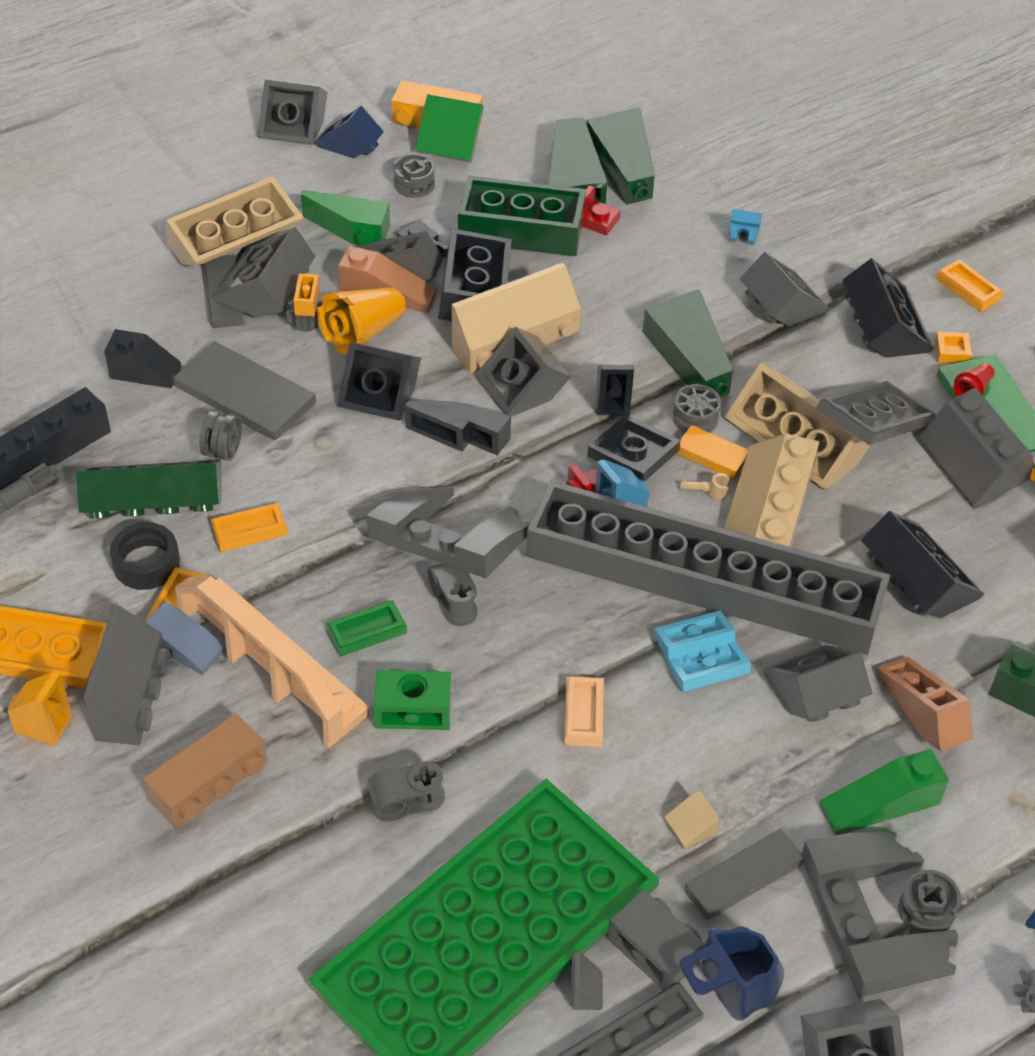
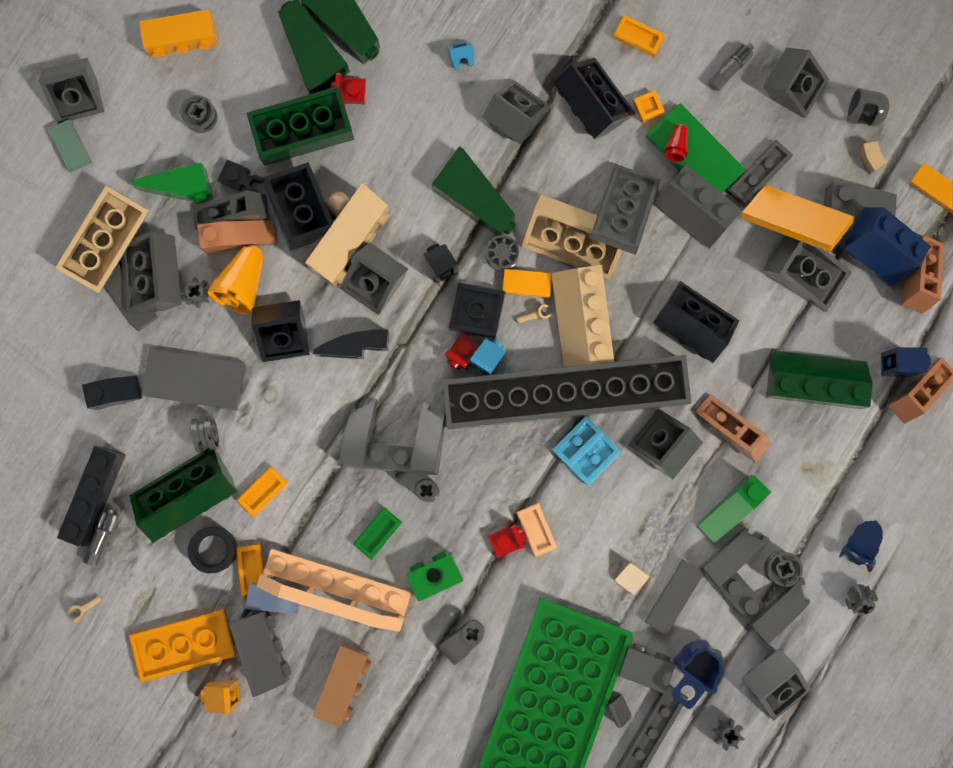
camera: 25 degrees left, 35 degrees up
(256, 155) = (69, 146): none -> sand green tile
(306, 294) = (195, 289): light orange piece -> none
(351, 134) = (129, 94): dark blue slope -> none
(449, 128) = (201, 55): green tile -> none
(537, 704) = (507, 540): none -> red bracket

